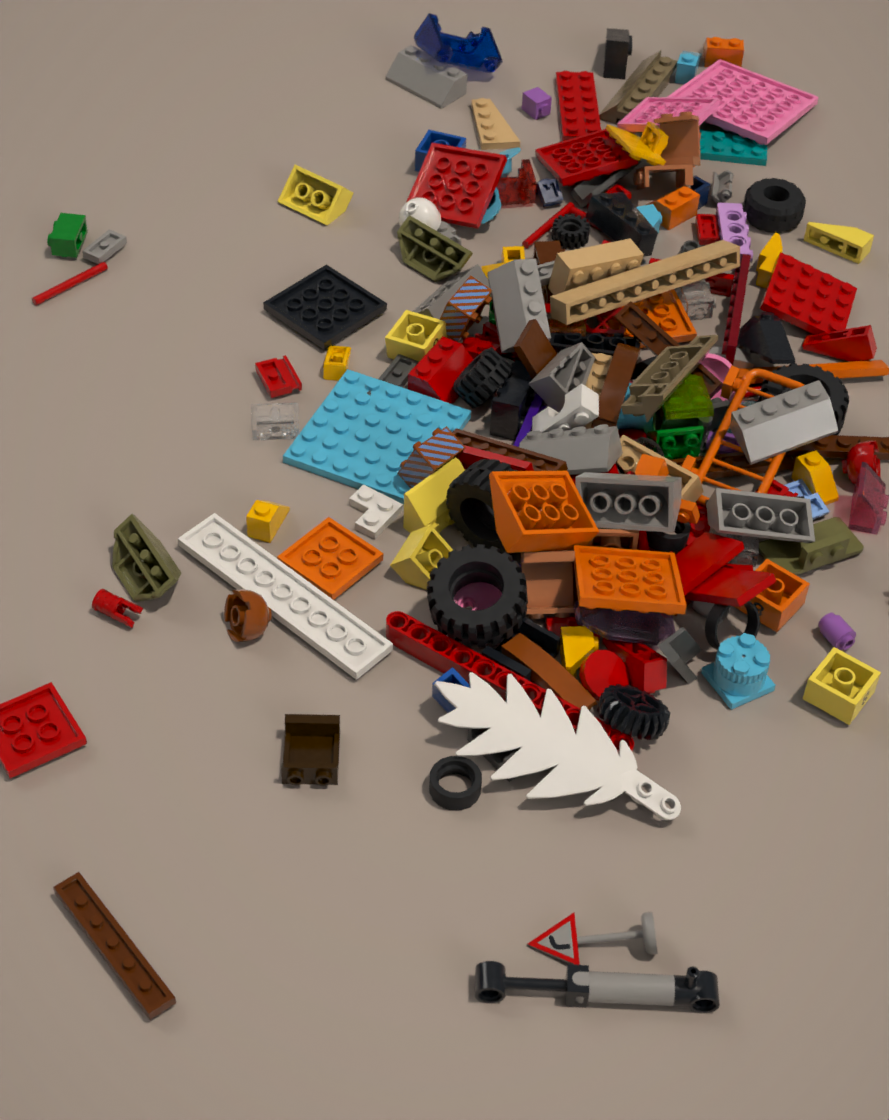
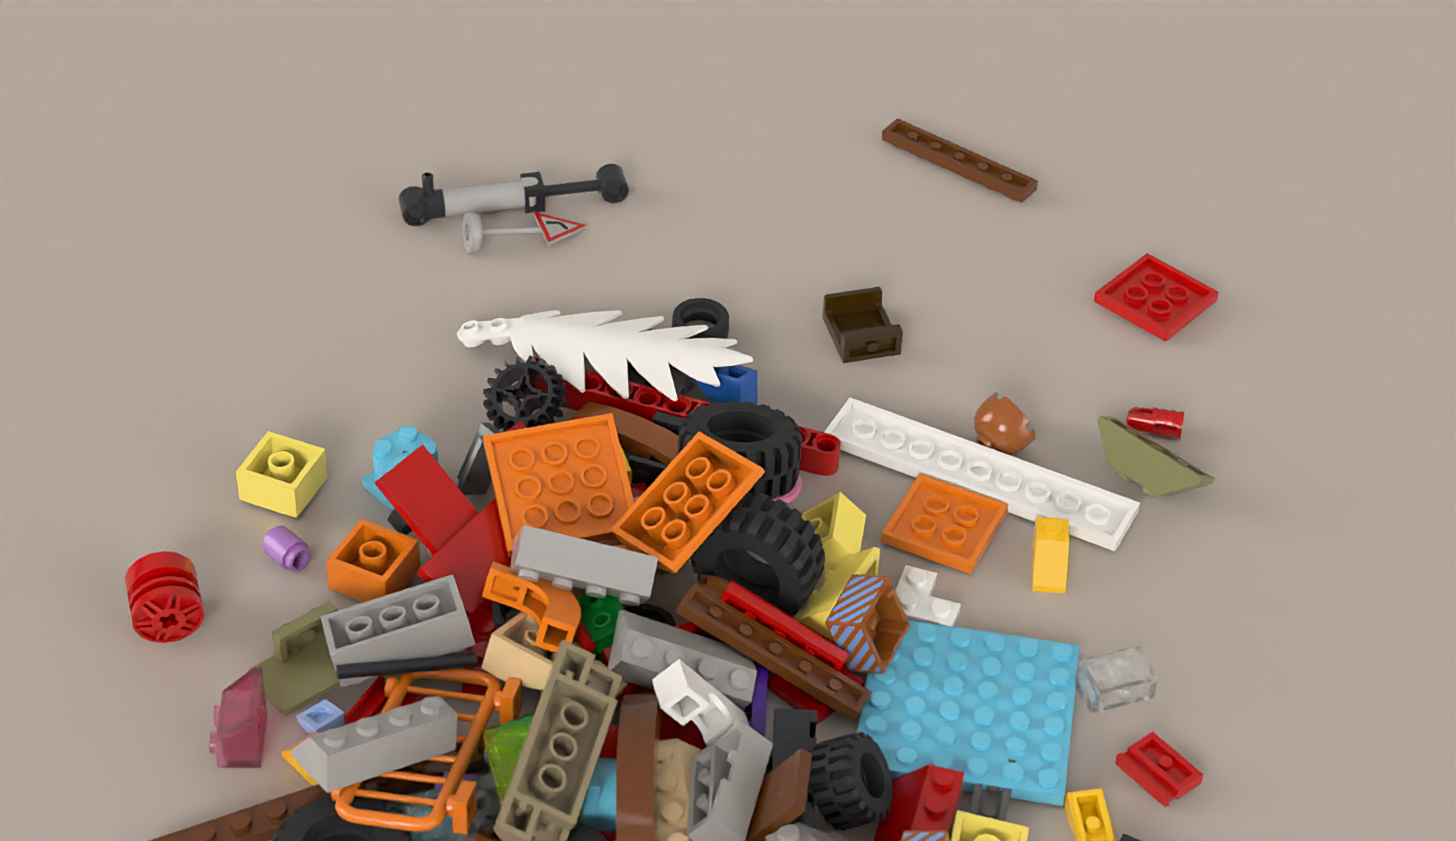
camera: 165 degrees right, 5 degrees down
(861, 453) = (245, 781): red cylinder -> none

